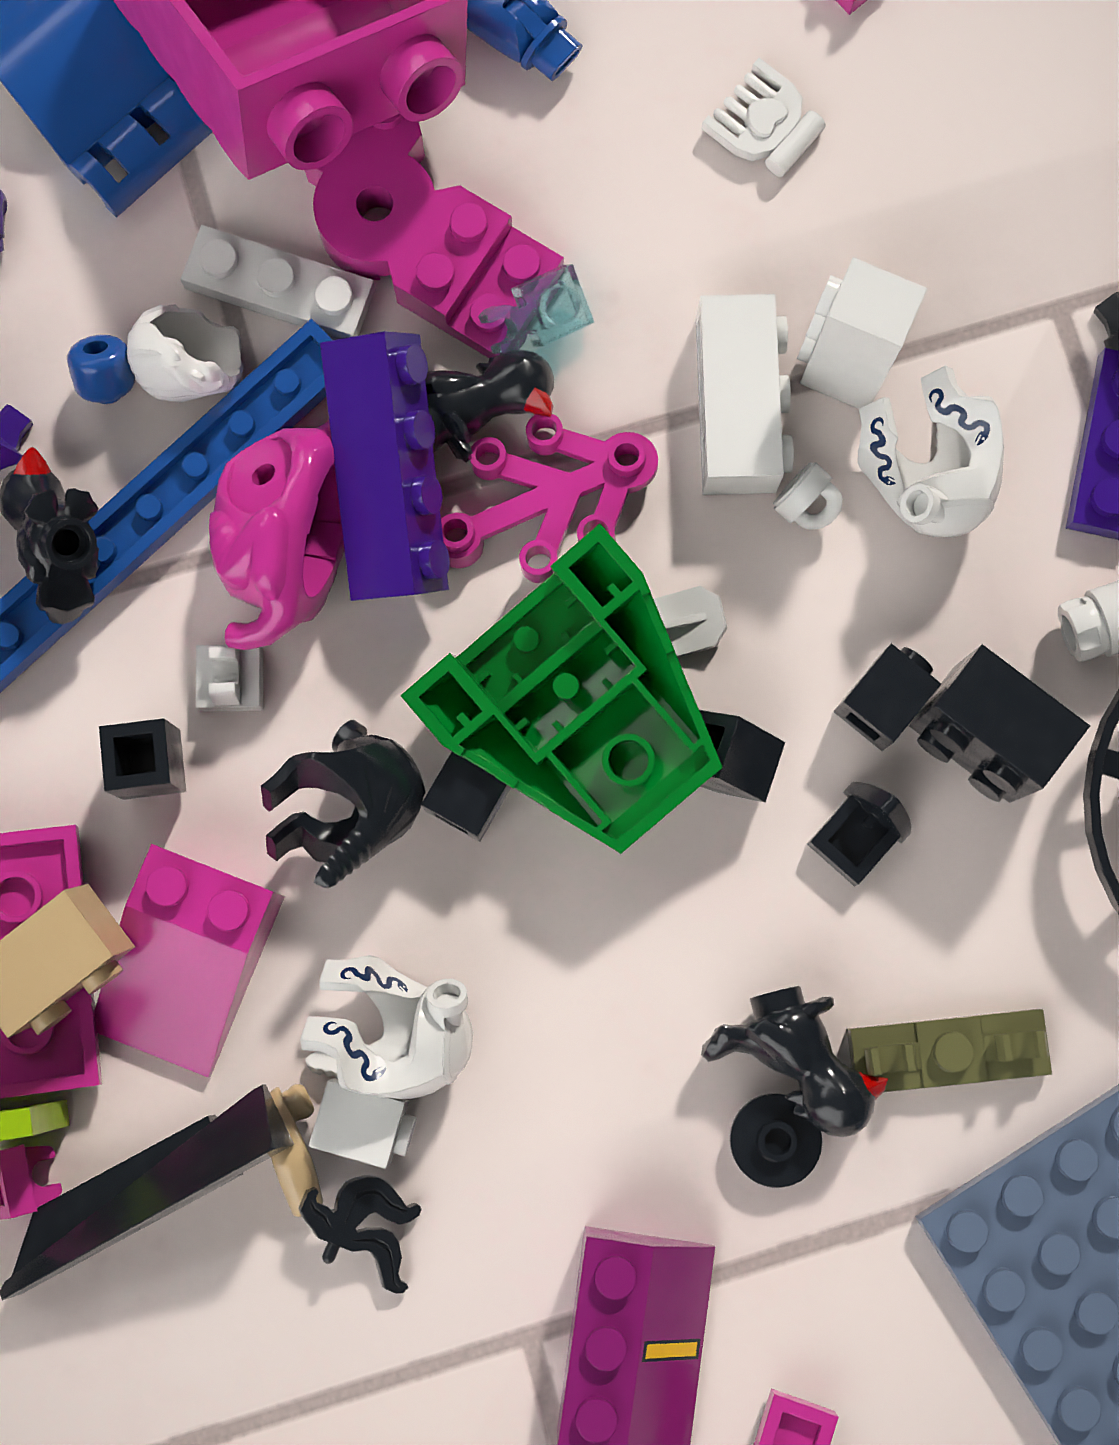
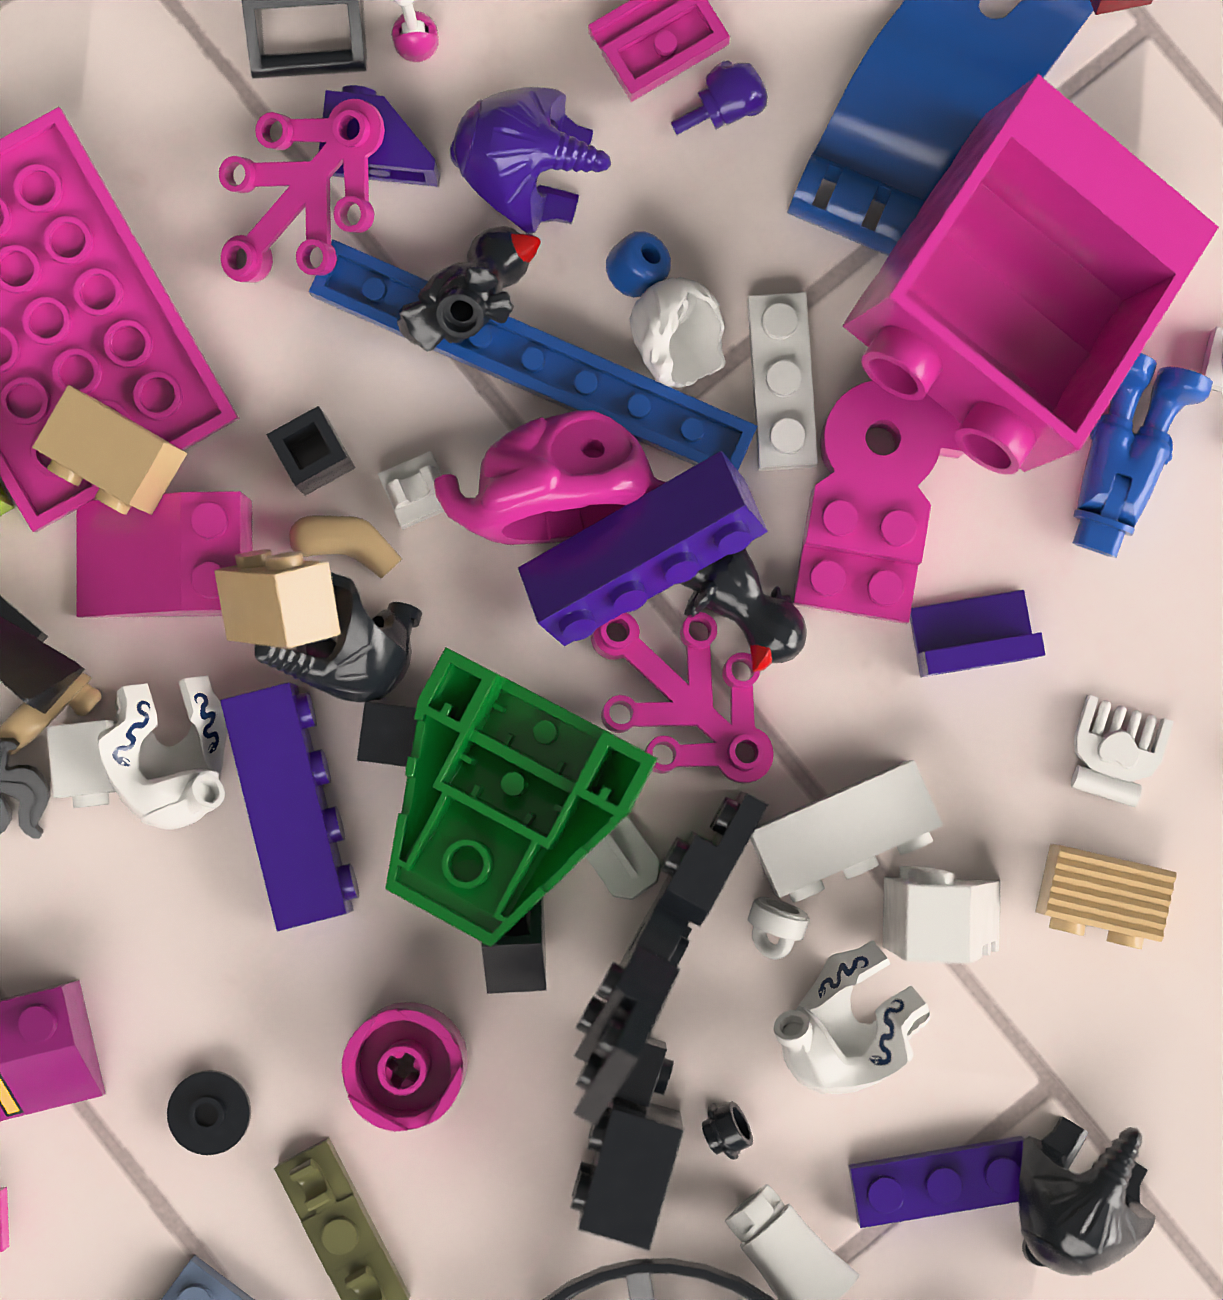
camera: 70 degrees right, 5 degrees up
(244, 767) = (344, 536): none -> tan arm
(278, 840) = (277, 599): none -> tan brick
(494, 929) = (288, 805): none -> dark purple brick
(545, 310) = (849, 627): clear light blue plate -> none
(601, 204) = (974, 634): none -> dark purple panel
(795, 1043) = (293, 1098): black animal -> none
(815, 632) = (642, 981): none -> black plate
(843, 920) = (370, 1071): none -> dark pink brick
(861, 831) = (499, 1084): black tile -> none
(898, 179) = (1106, 894): none -> tan brick
(990, 625) = (727, 1130): none -> black plate

